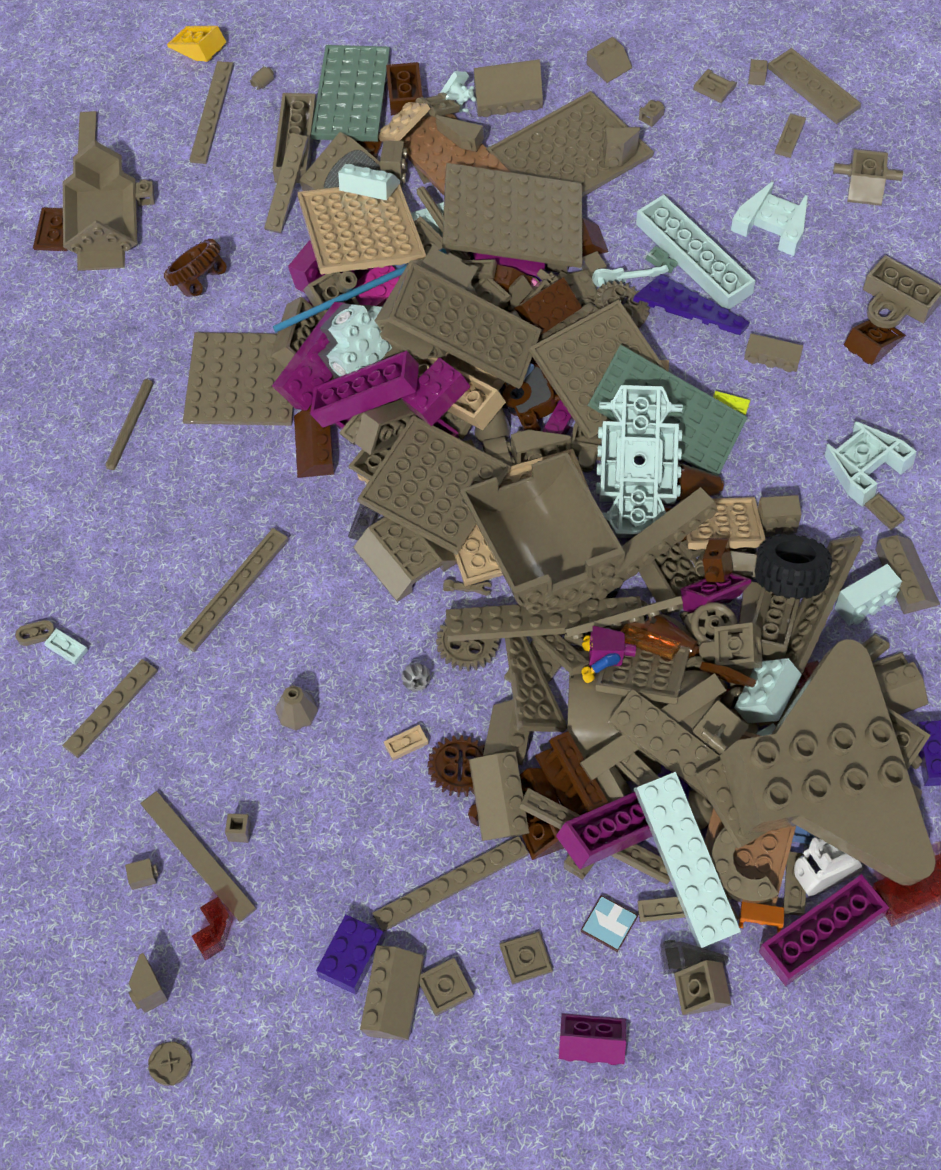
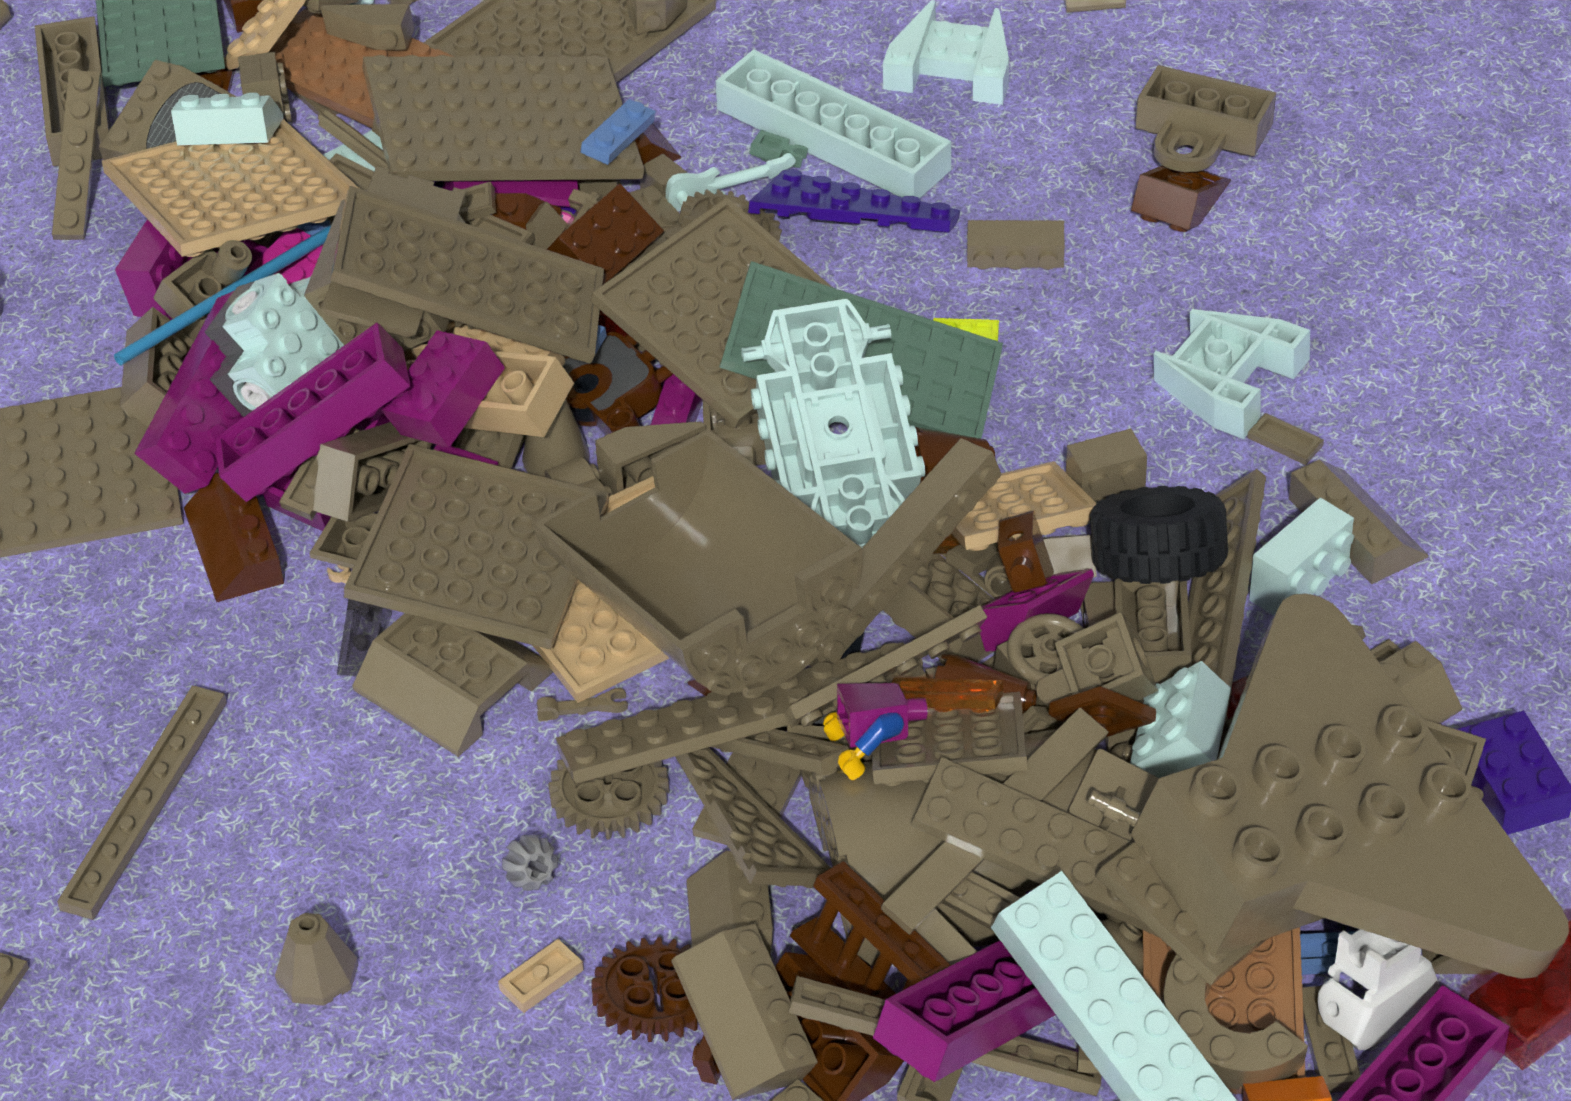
camera: 15 degrees left, 15 degrees down
(573, 238) = (618, 131): none -> medium blue plate

